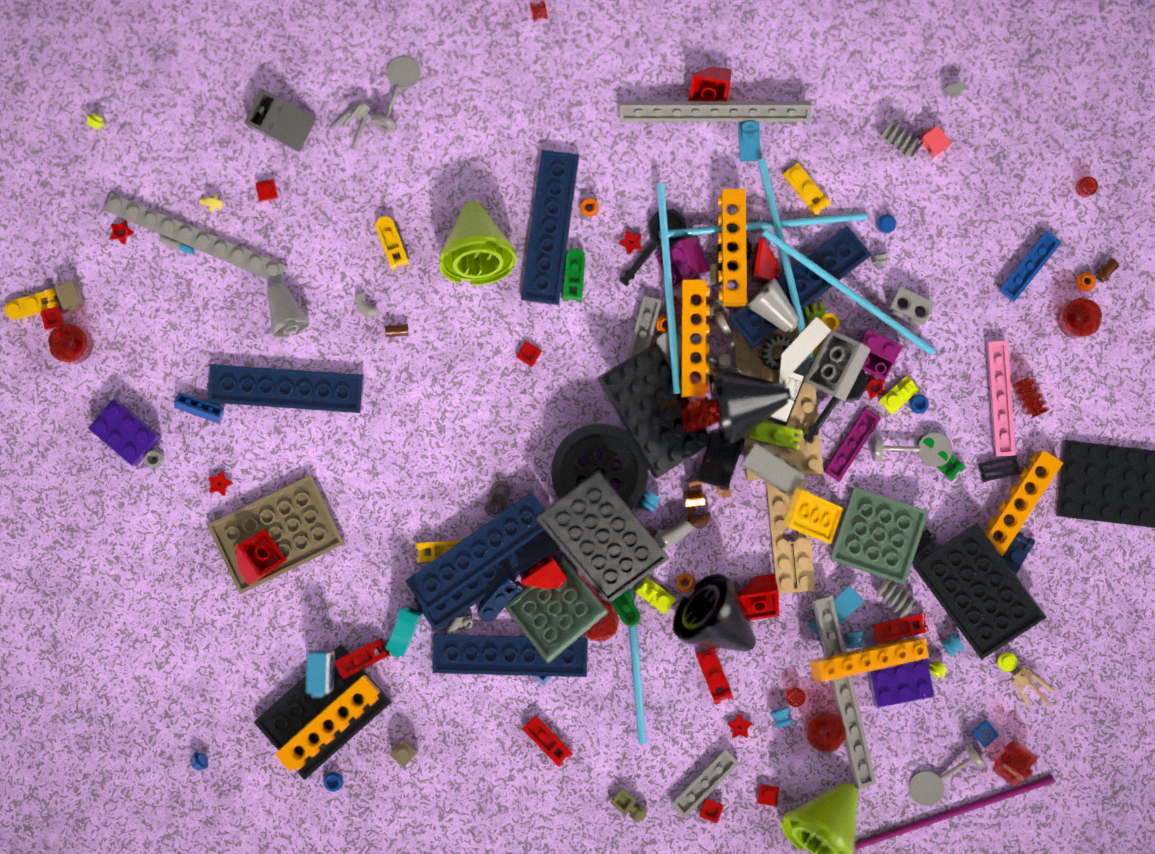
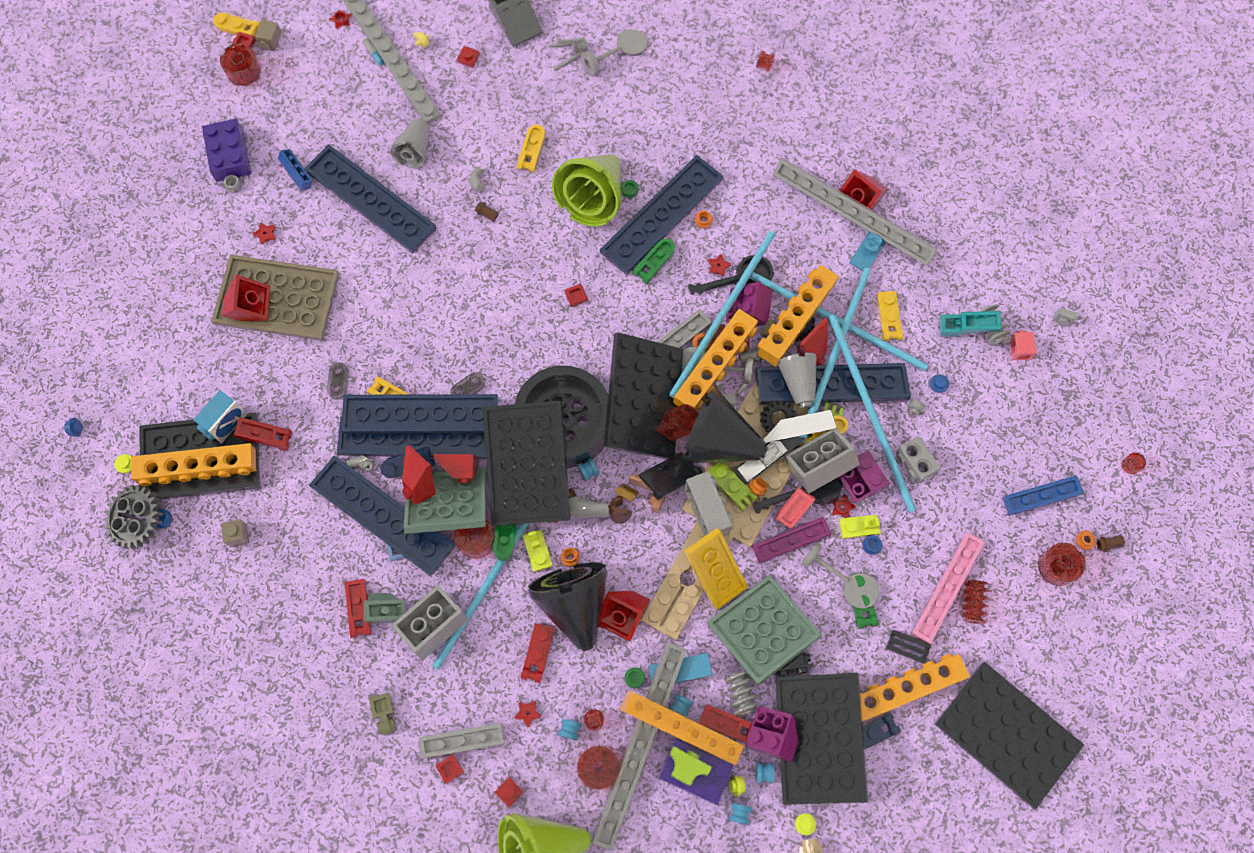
camera: 30 degrees right, 15 degrees down
(265, 760) = (123, 463): none -> neon yellow plate
(319, 813) = (131, 532): none -> dark grey gear
(386, 568) = (337, 380): none -> clear smoke plate
(404, 630) = (314, 434): teal arch -> none
(504, 221) = (629, 188): none -> green tile
(522, 610) = (416, 477): none -> red slope
(568, 726) = (383, 608): none -> sand green slope
(615, 713) = (430, 622): none -> light grey brick
(798, 421) = (758, 486): none -> orange plate
(803, 642) = (634, 677): none -> green tile
(839, 418) = (795, 507): none -> coral tile
(880, 153) = (969, 322): none -> teal slope
(895, 686) = (687, 766): none -> lime brick
(941, 614) = (773, 734): none -> magenta slope
(954, 689) = (740, 814): none -> dark azure wheel

